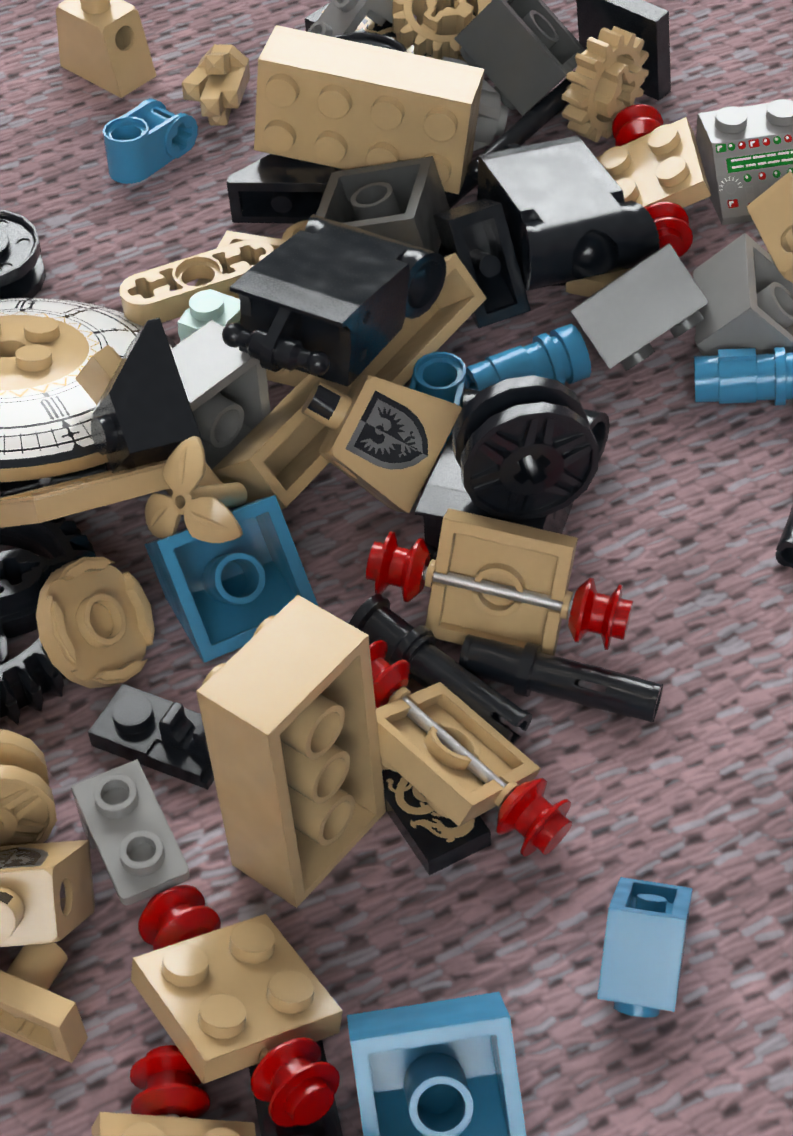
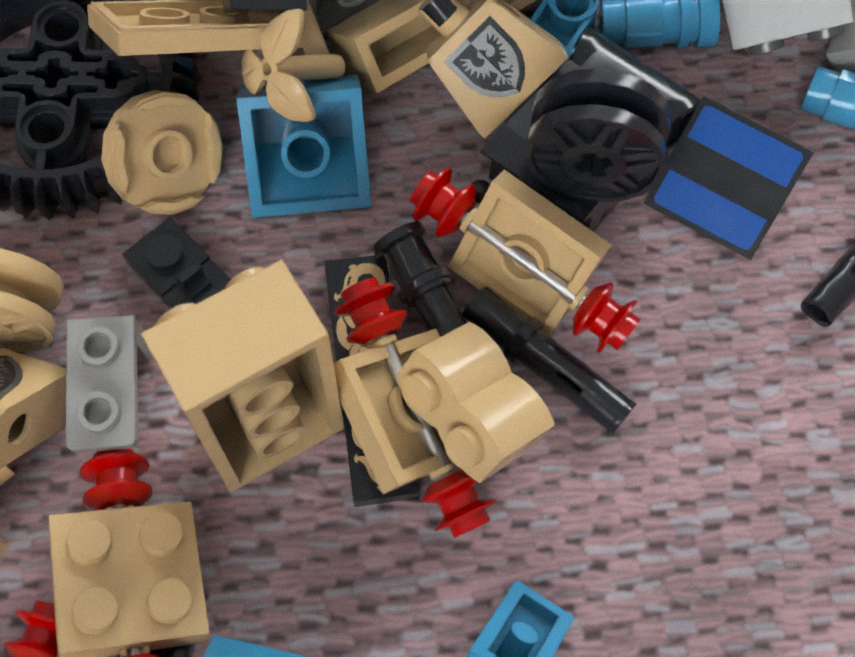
camera: 15 degrees right, 20 degrees up
(517, 719) = (474, 401): none -> tan brick
(656, 471) = (728, 177): none -> piece

